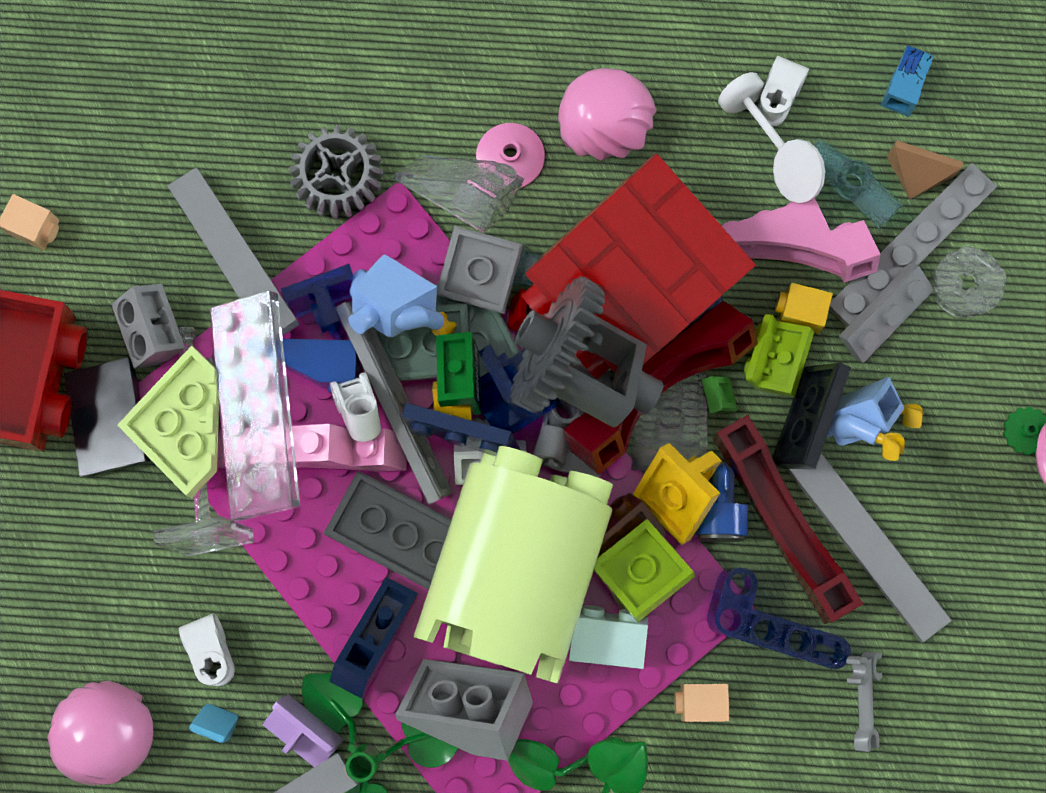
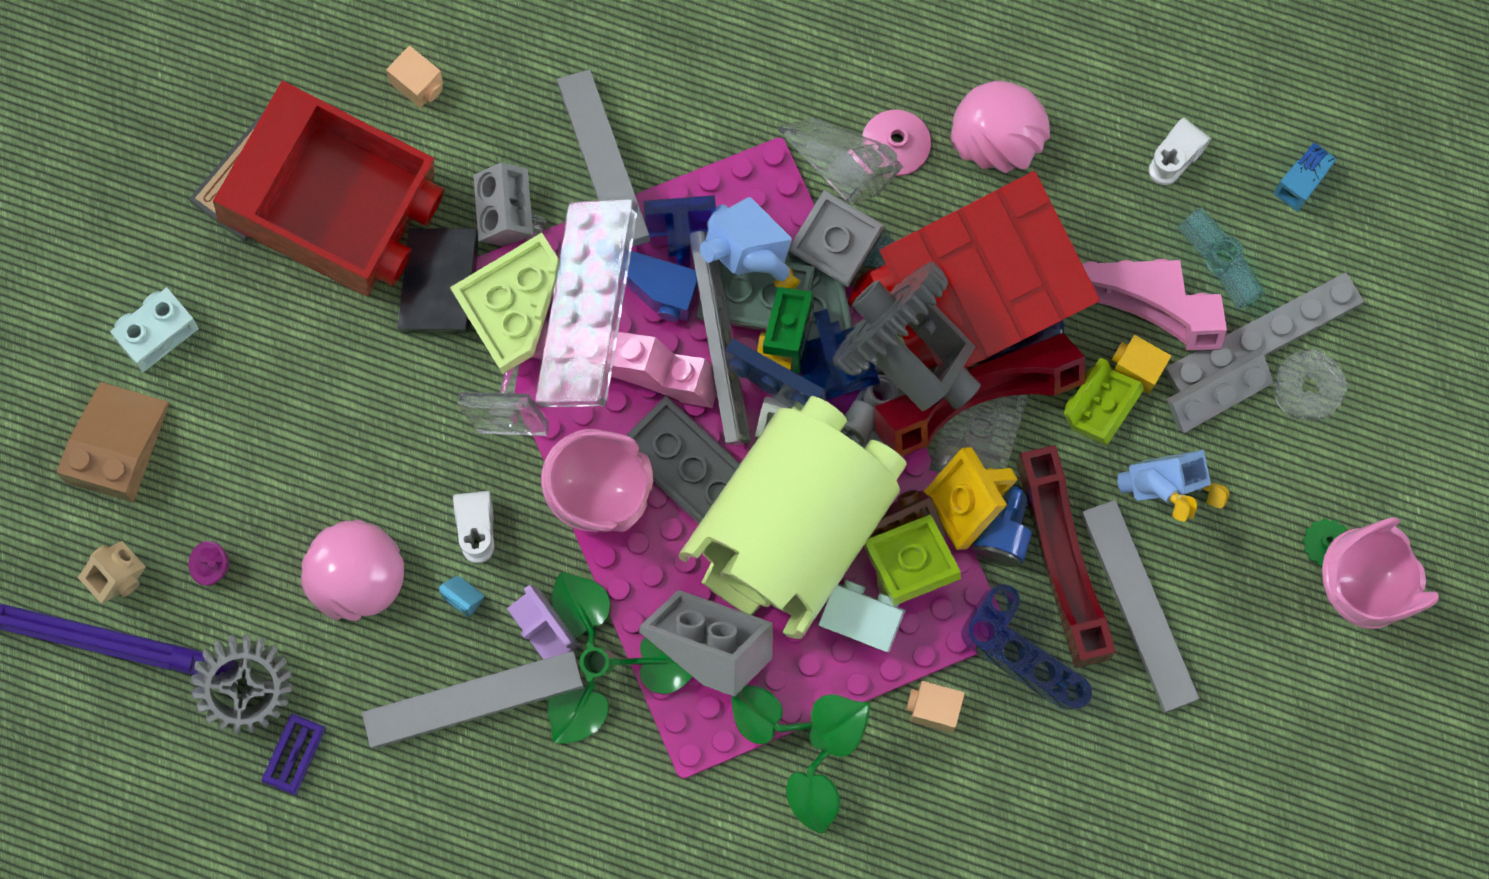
camera: 10 degrees right, 5 degrees down
(313, 582) = (597, 481): none -> bright pink piece
(326, 180) = (748, 99): light grey gear -> none
(358, 407) = (684, 332): white piece -> none
(372, 638) = (635, 555): dark blue slope -> none
(719, 395) = (1034, 423): bright green tile -> none
(798, 164) = (1172, 222): white piece -> none
(810, 416) = (1116, 465): black tile -> none
(863, 673) = (1100, 722): light grey bar -> none
(921, 169) = (1293, 264): medium nougat slope -> none

